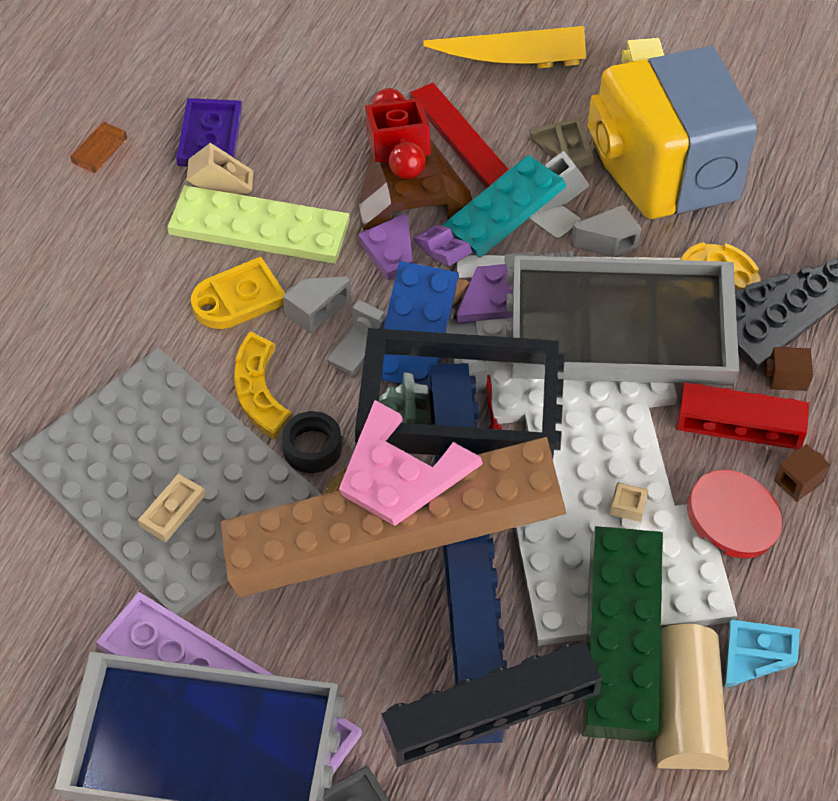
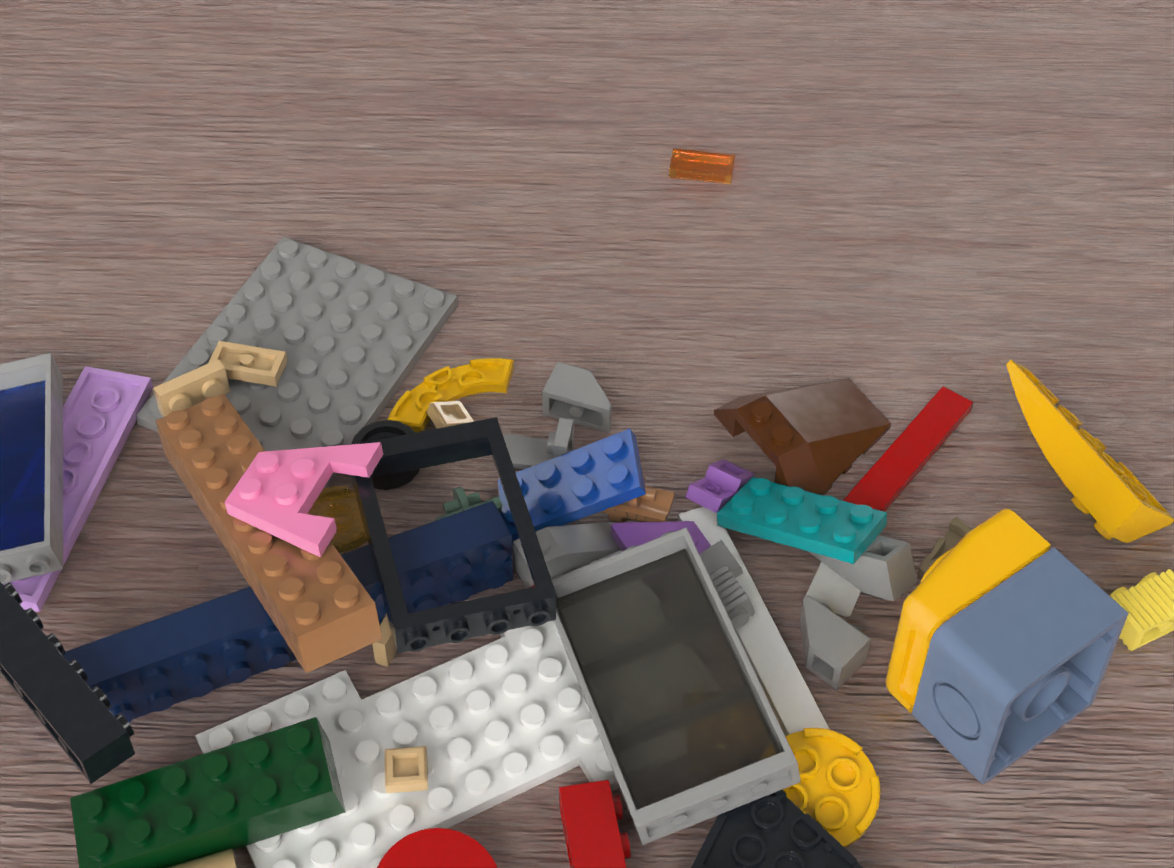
camera: 70 degrees right, 5 degrees down
(188, 566) = (192, 388): none -> tan plate
(207, 123) = (769, 239): dark purple plate -> none
(219, 171) = (714, 264): tan slope -> none
(237, 295) = (561, 334): yellow tile -> none
(259, 224) = (669, 325): yellowish green plate -> none
(292, 389) = (448, 413): none -> tan tile
(388, 244) = (697, 441): medium lavender wing -> none
(398, 132) = (847, 380): red brick -> none

